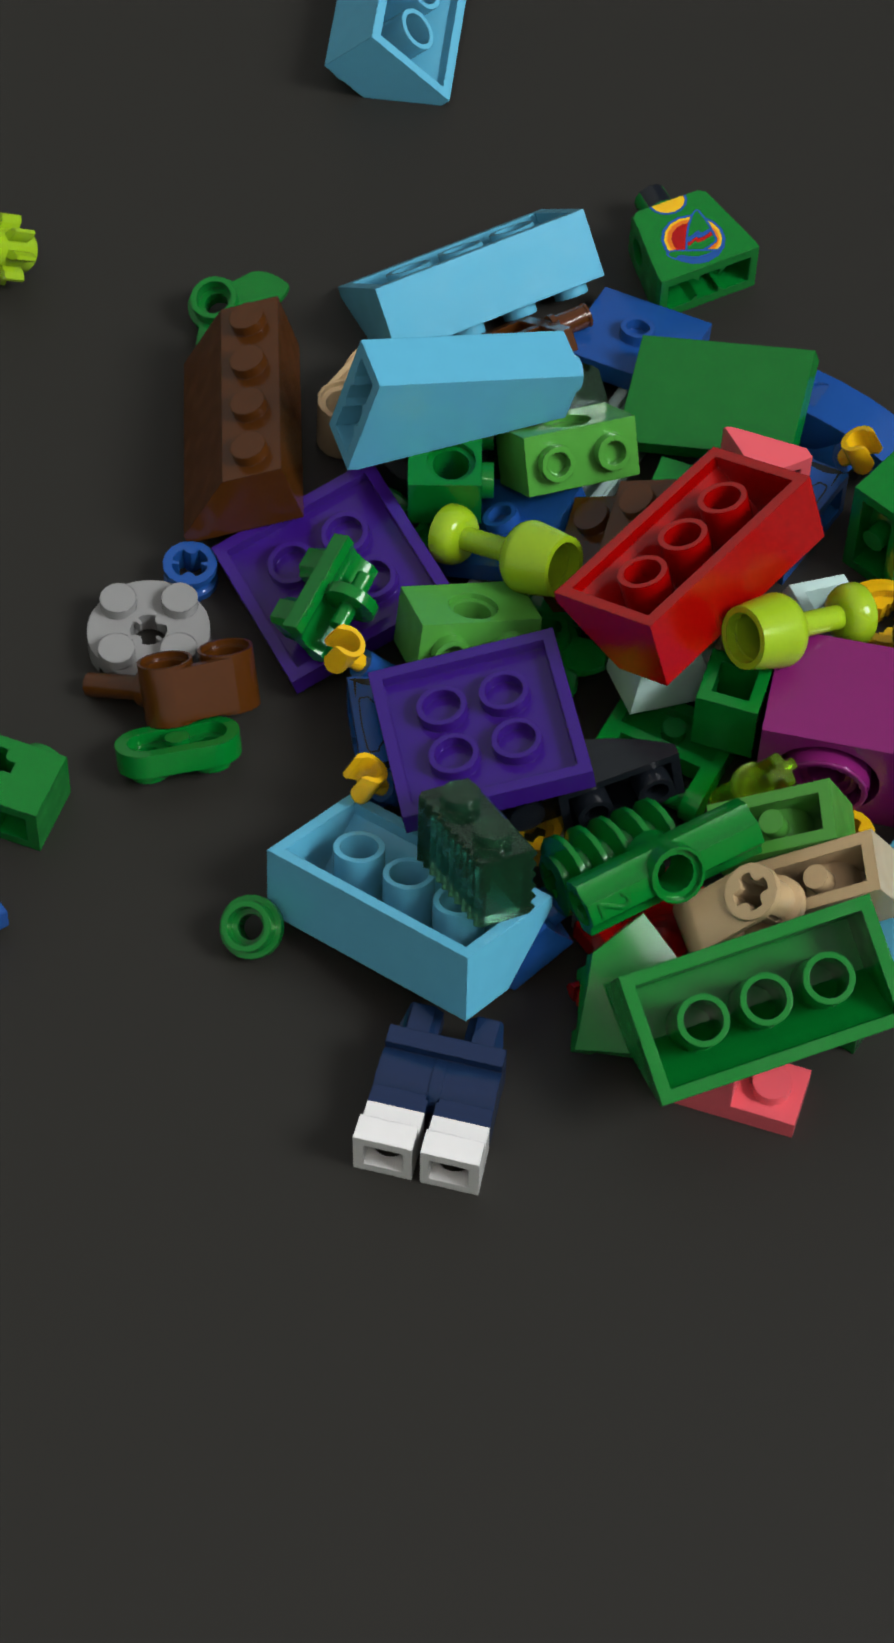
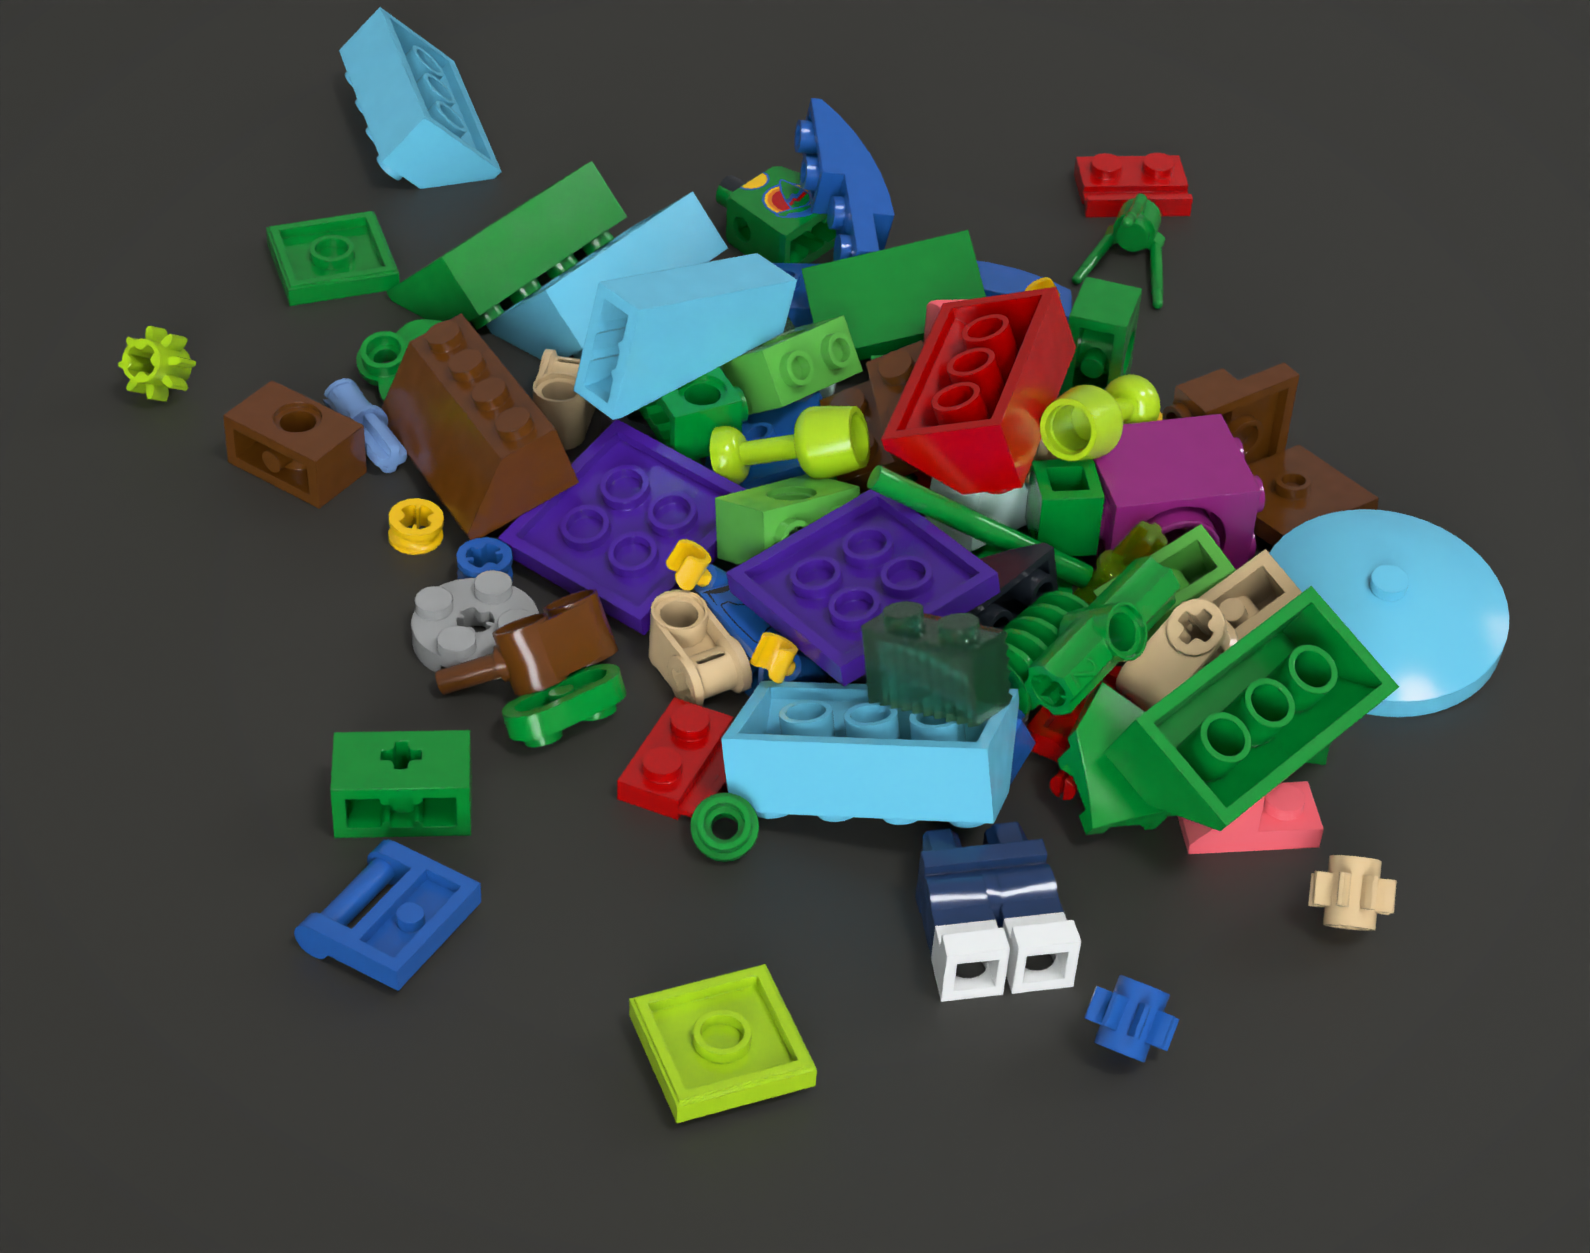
camera: 25 degrees left, 15 degrees down
(85, 379) = (295, 443): none -> reddish brown brick
(132, 1140) = (722, 1043): none -> lime plate
(152, 488) = (415, 513): none -> yellow bush
(161, 375) = (380, 442): none -> medium blue axle
(232, 162) = (332, 258): none -> green tile
(235, 847) = (678, 761): none -> red plate
(320, 738) = (695, 648): none -> tan piece
(332, 596) = (651, 528): green hips -> none
(398, 213) = (515, 251): none -> green slope
(490, 1254) = (1131, 1018): none -> blue gear
(627, 702) = (969, 521): none -> green bar
(739, 246) = (843, 182): none -> blue slope
(770, 1204) = (1352, 893): none -> tan gear

